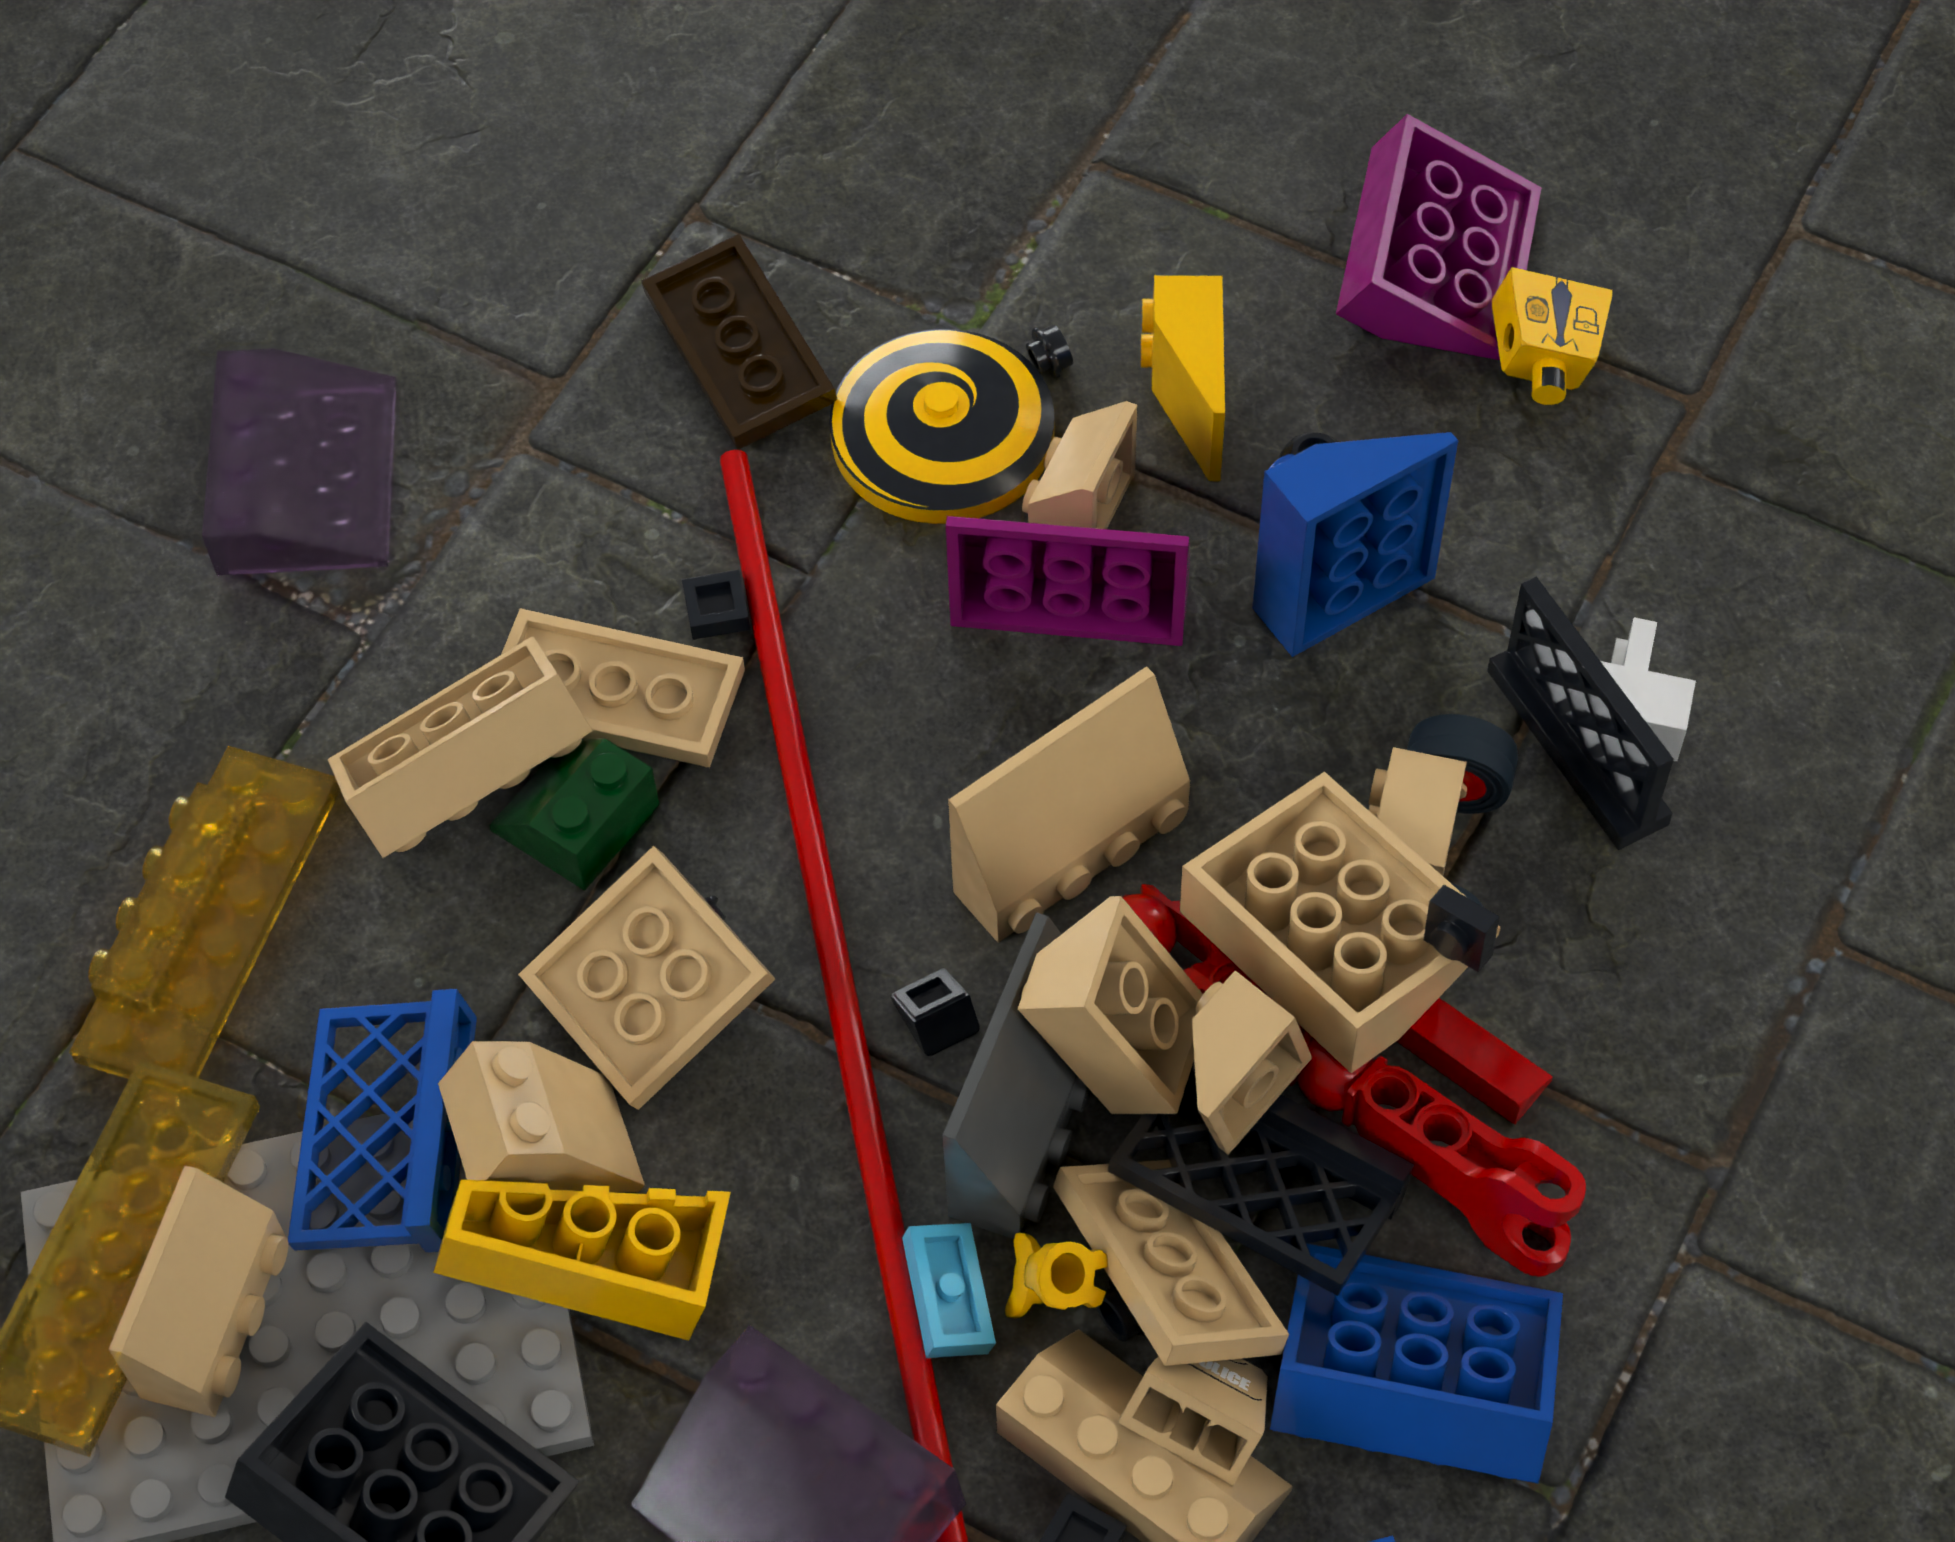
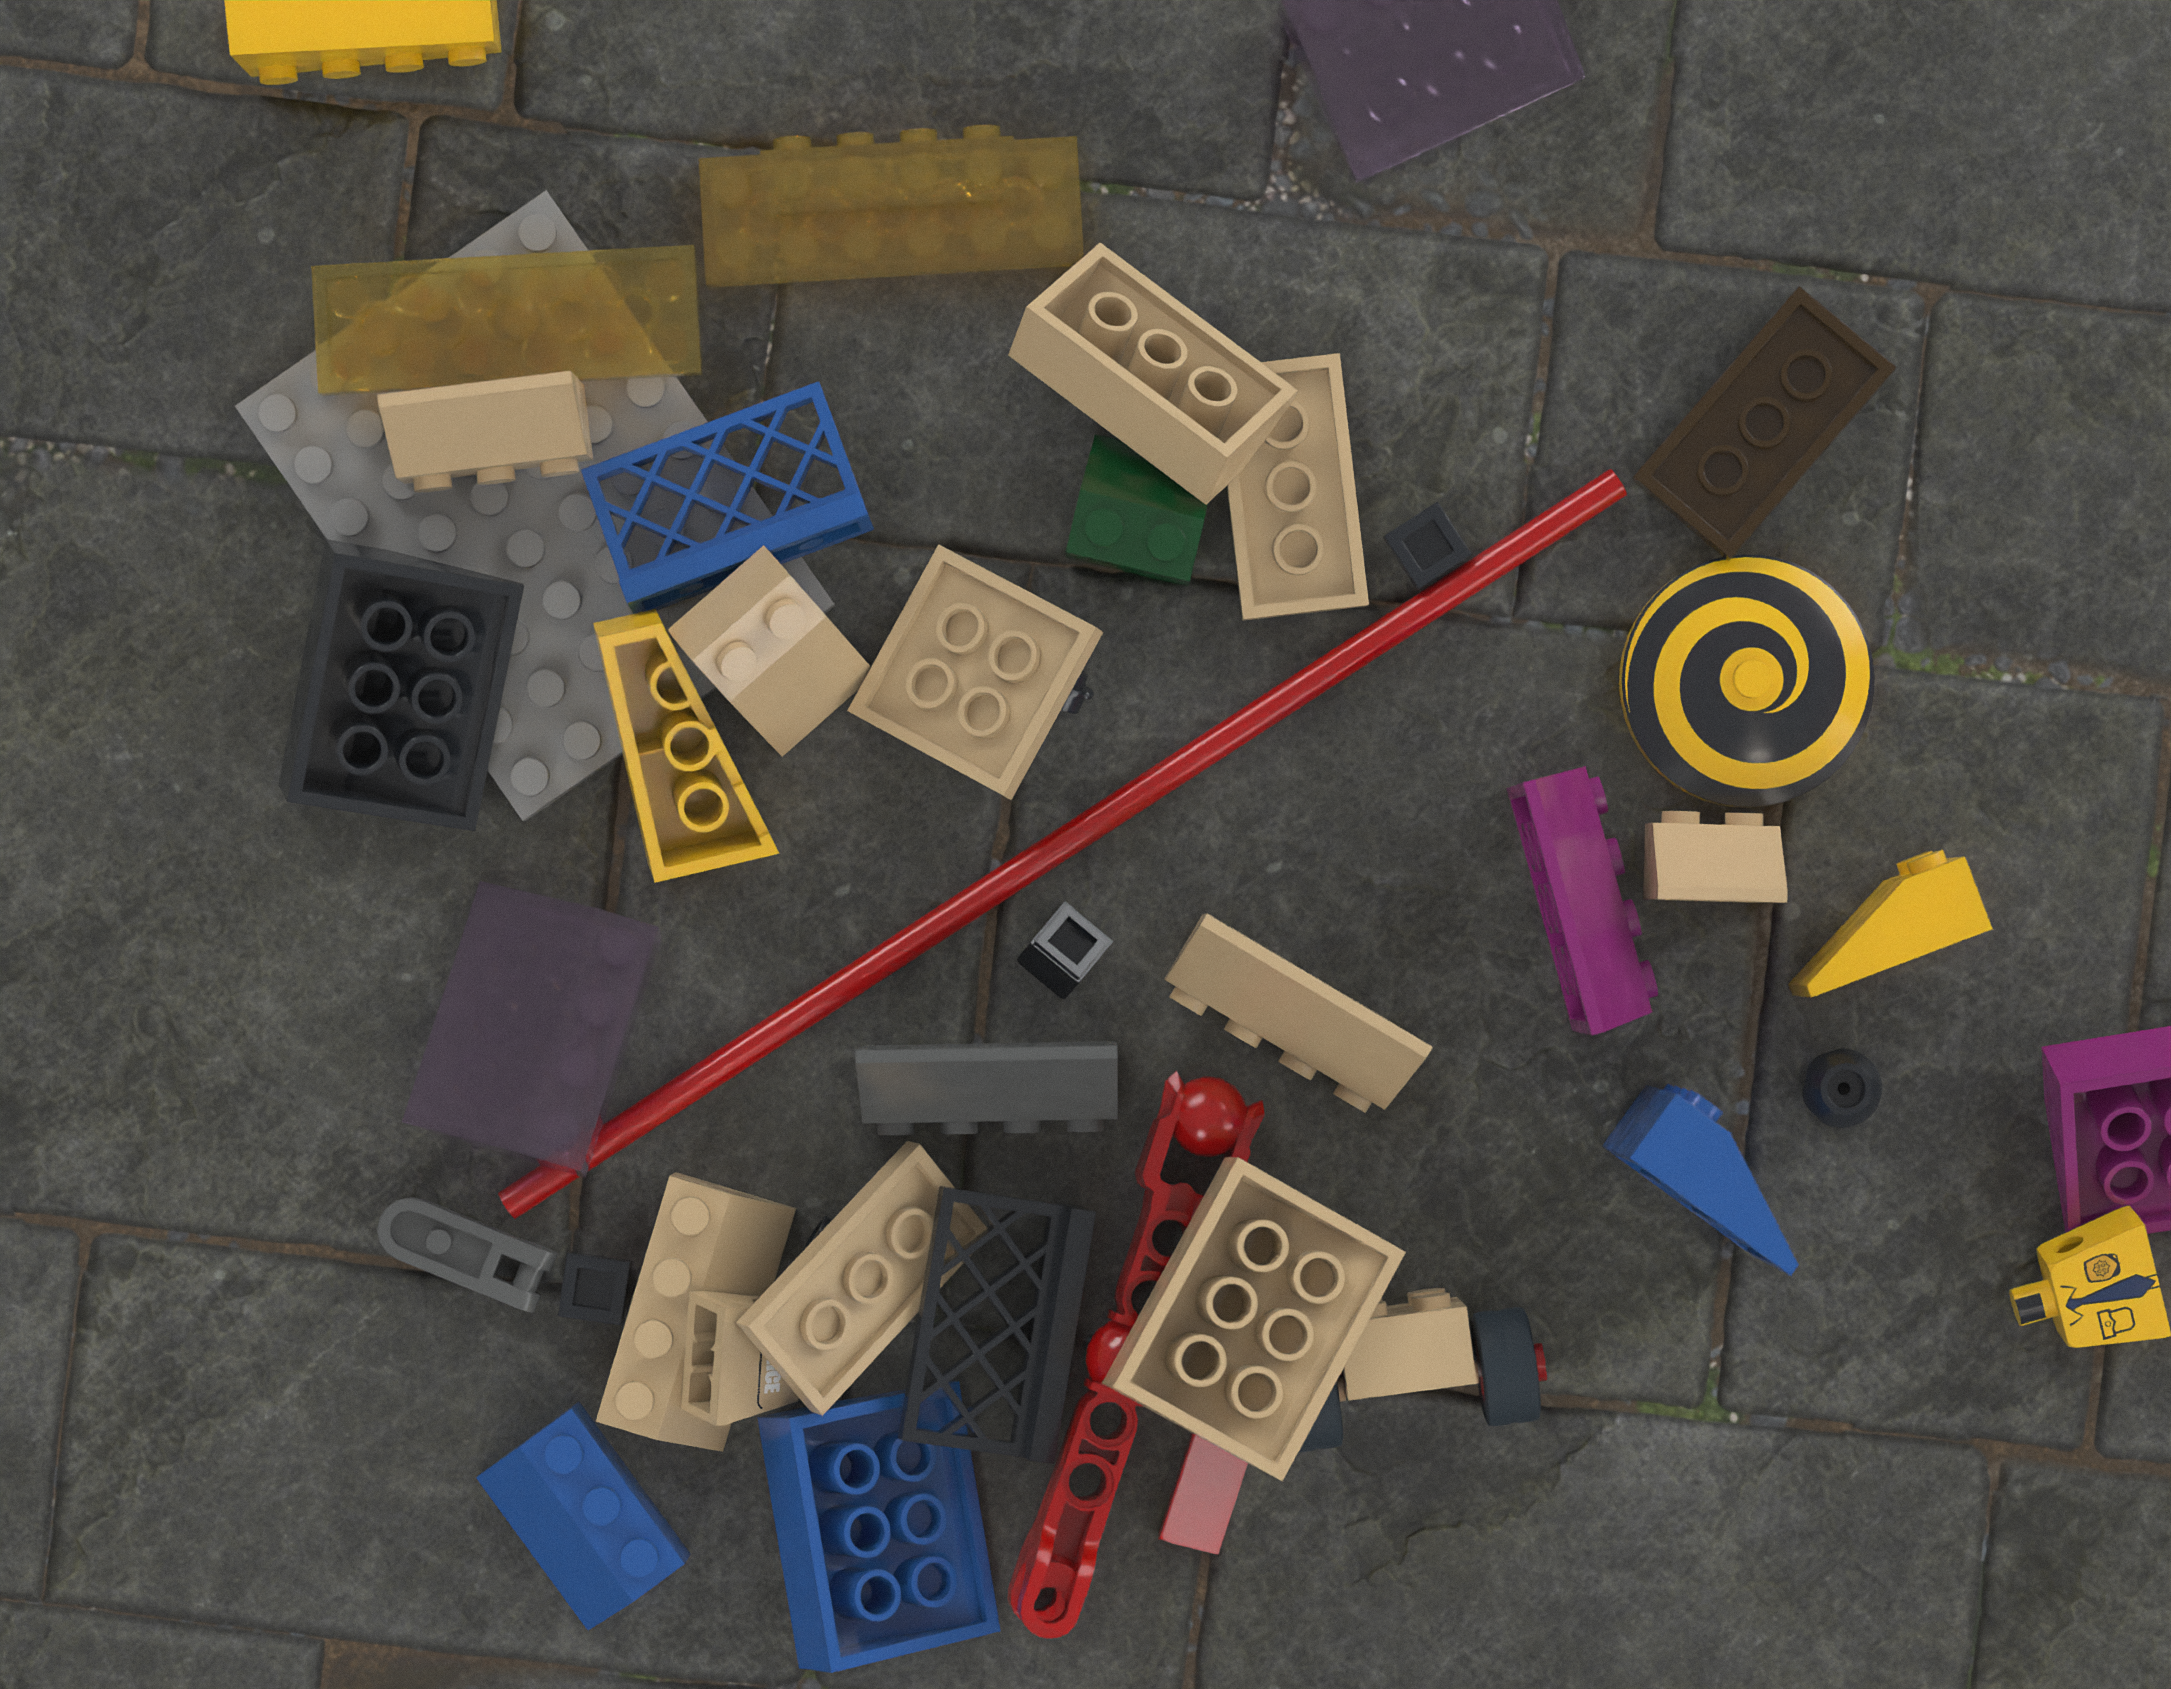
camera: 65 degrees right, 30 degrees up
(948, 1290) = (780, 1081): medium azure plate -> none
(1049, 351) = (1880, 758): black plate -> none
(1053, 1275) = (811, 1178): yellow animal -> none
(1116, 1010) = (1068, 1152): tan slope -> none
(1242, 1057) = (1068, 1279): tan slope -> none
(1461, 928) = (1244, 1450): black plate -> none
(1583, 719) = (1604, 1466): black fence -> none
(1658, 697) = (1658, 1512): white brick -> none

